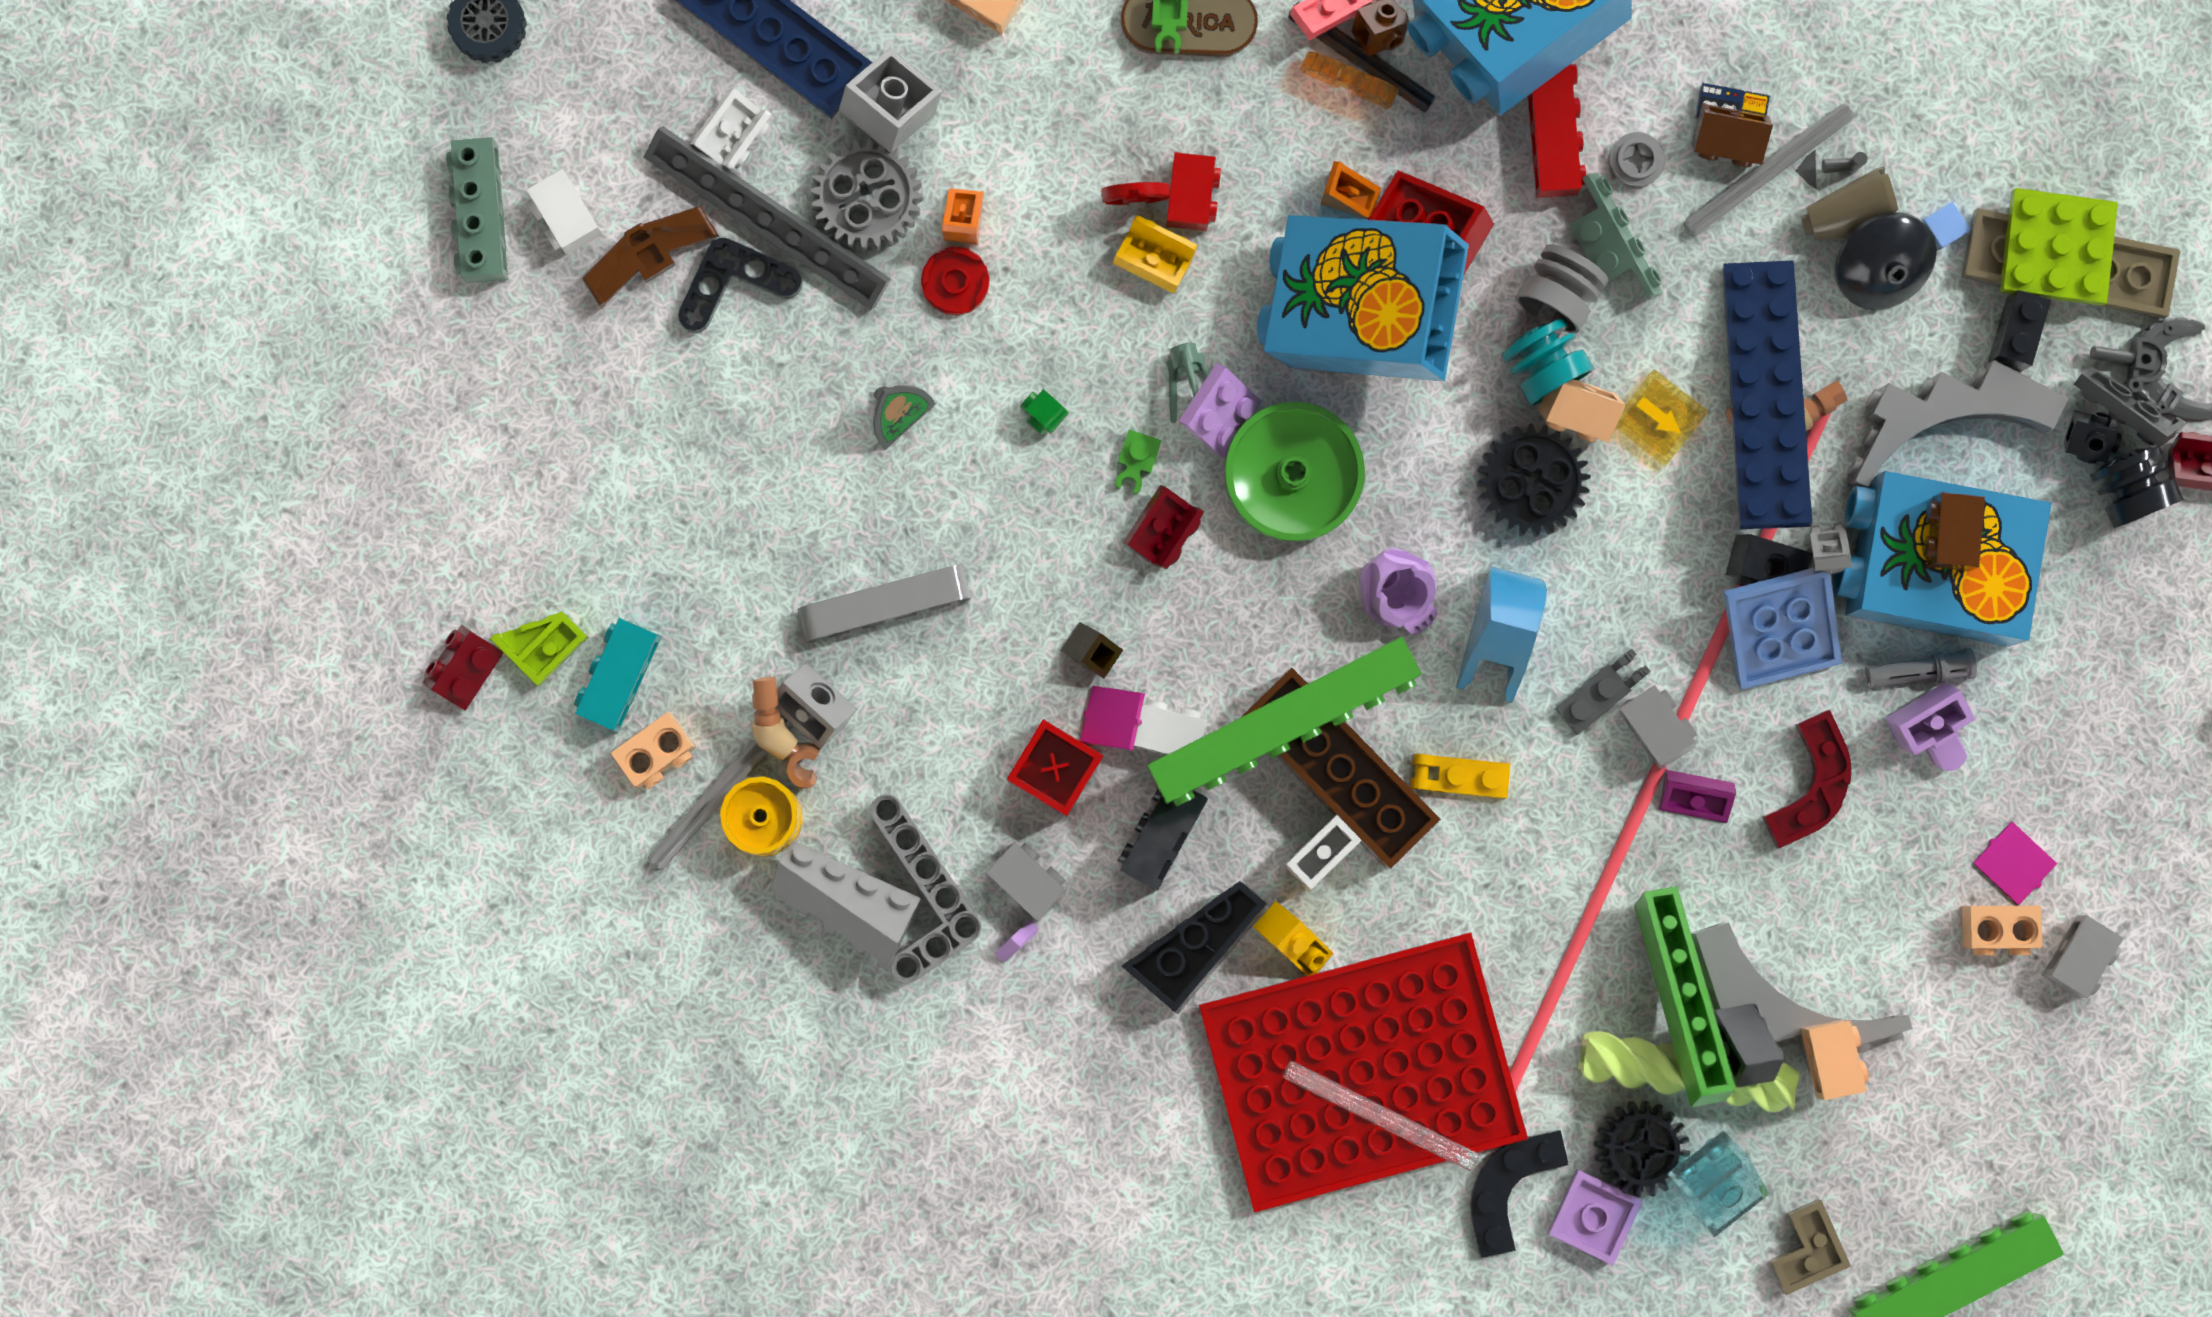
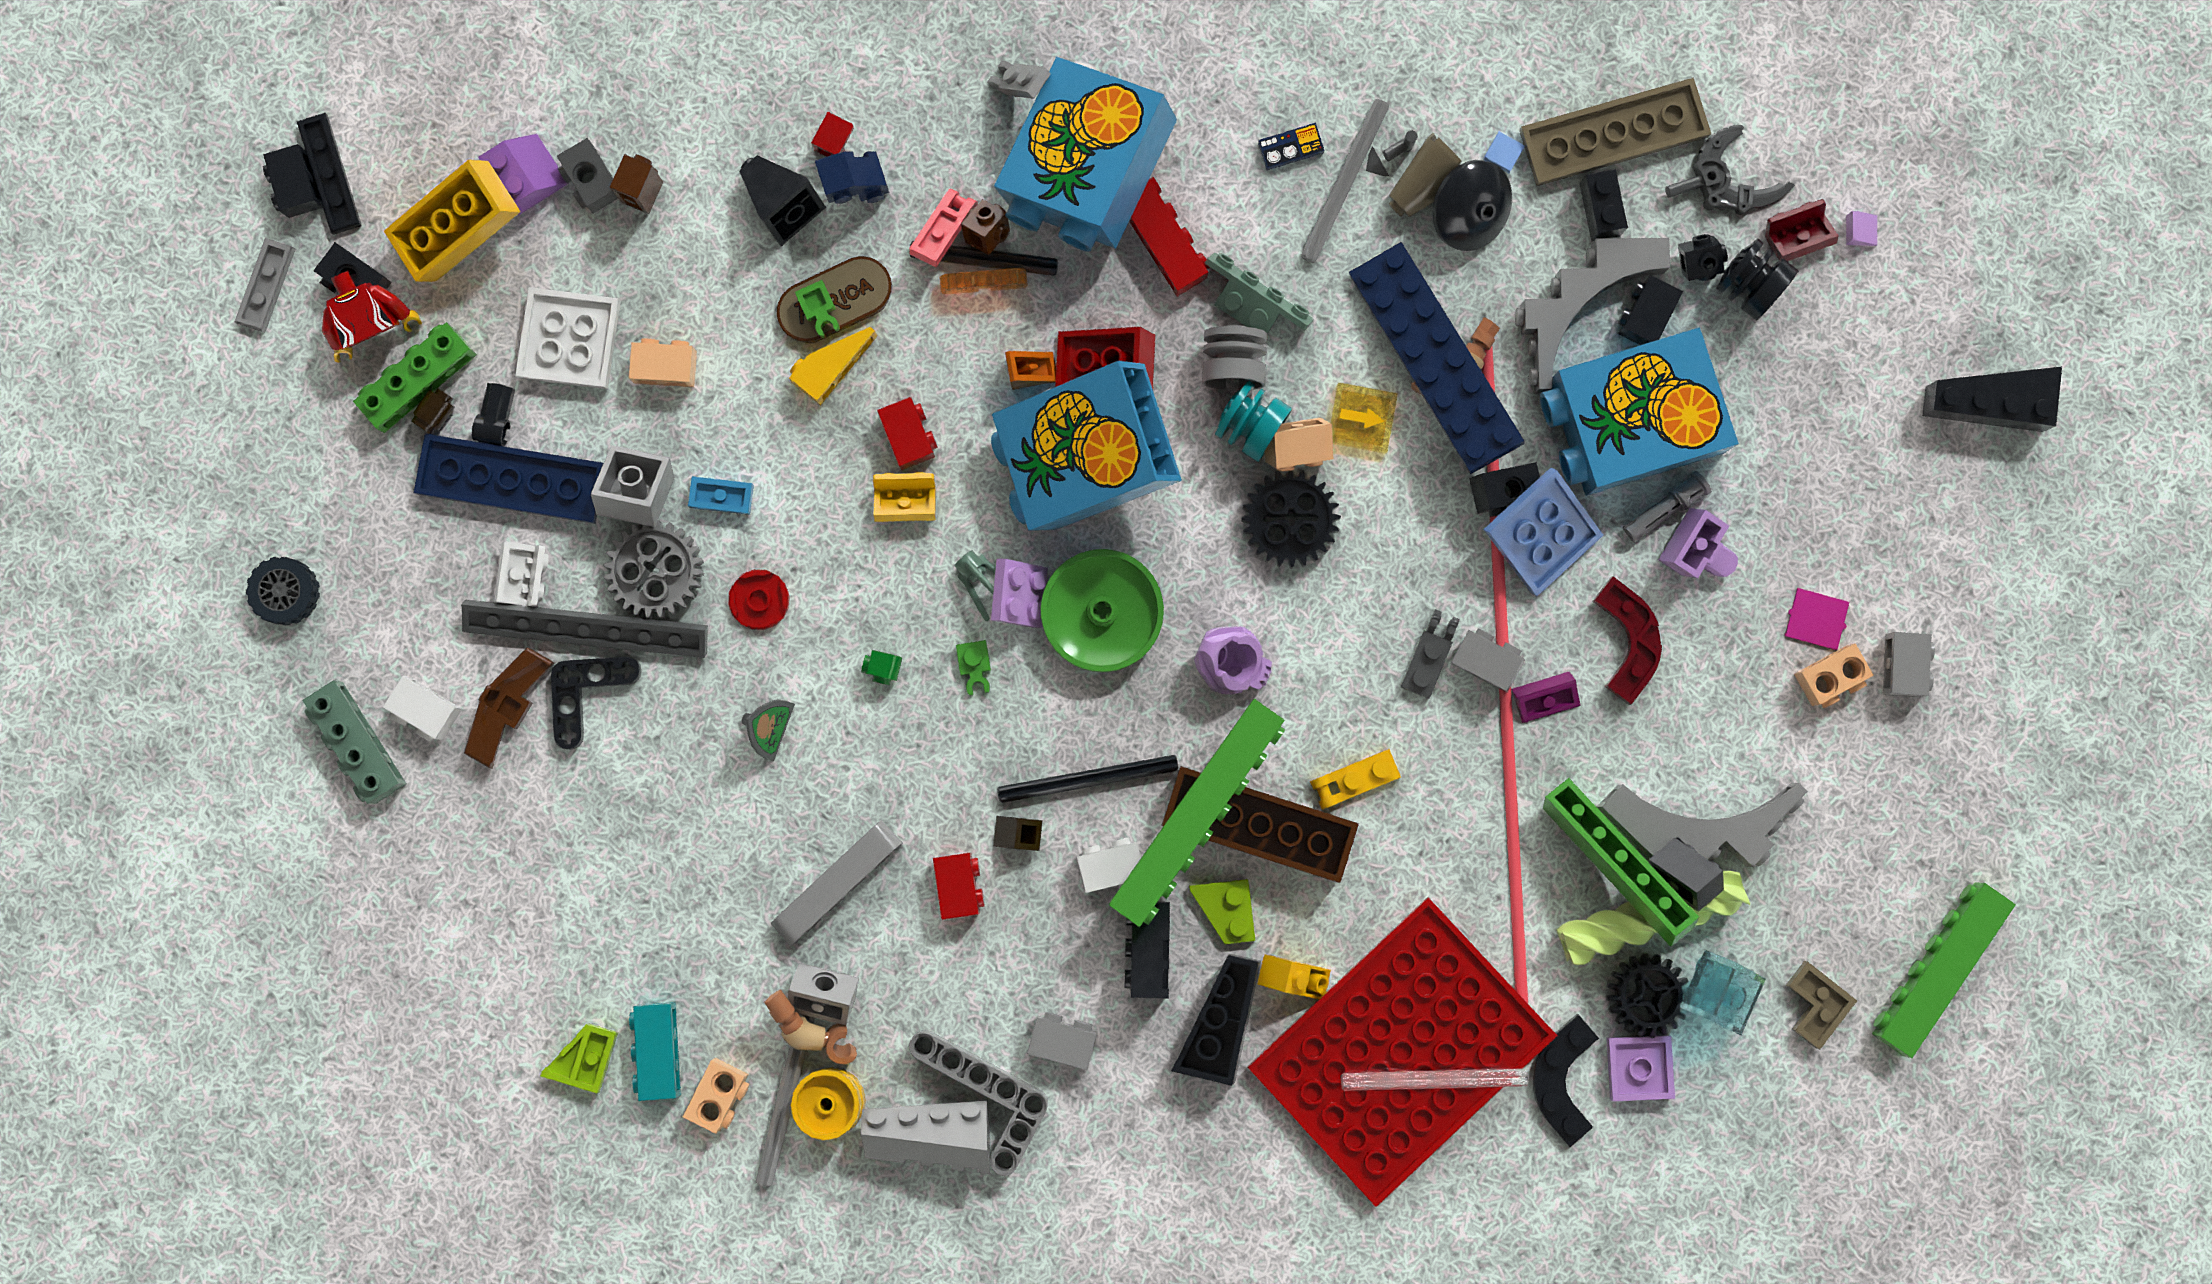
camera: 20 degrees left, 0 degrees up
(462, 667) = (530, 1110): dark red bracket -> none
(962, 216) = (737, 546): orange slope -> none
(972, 156) = (720, 495): none -> dark azure plate
(1004, 670) = (957, 885): none -> red brick
(1017, 941) = (1079, 1092): lavender tile -> none
(1055, 768) = (1037, 942): red brick -> none
(1112, 717) = (1062, 878): dark pink piece -> none
(1135, 192) = (863, 458): red tile -> none
(1148, 82) = (826, 367): none -> yellow slope
(1163, 528) = (1023, 708): dark red bracket -> none
(1190, 633) = (1087, 778): none -> black axle
(1262, 837) = (1227, 908): none -> lime wing
(1322, 852) = (1280, 897): white brick -> none
(1505, 626) = (1329, 644): dark azure piece -> none
(1646, 147) = (1241, 212): light grey gear -> none
(1731, 135) = (1302, 169): reddish brown brick -> none
(1830, 549) = (1548, 452): light grey hinge -> none
(1834, 1059) = (1761, 848): light nougat brick -> none
(1954, 531) = (1637, 390): reddish brown brick -> none
(2011, 462) = (1650, 311): none -> black brick
(2059, 246) = (1599, 123): lime plate -> none
(2138, 414) = (1730, 222): dark grey wing -> none

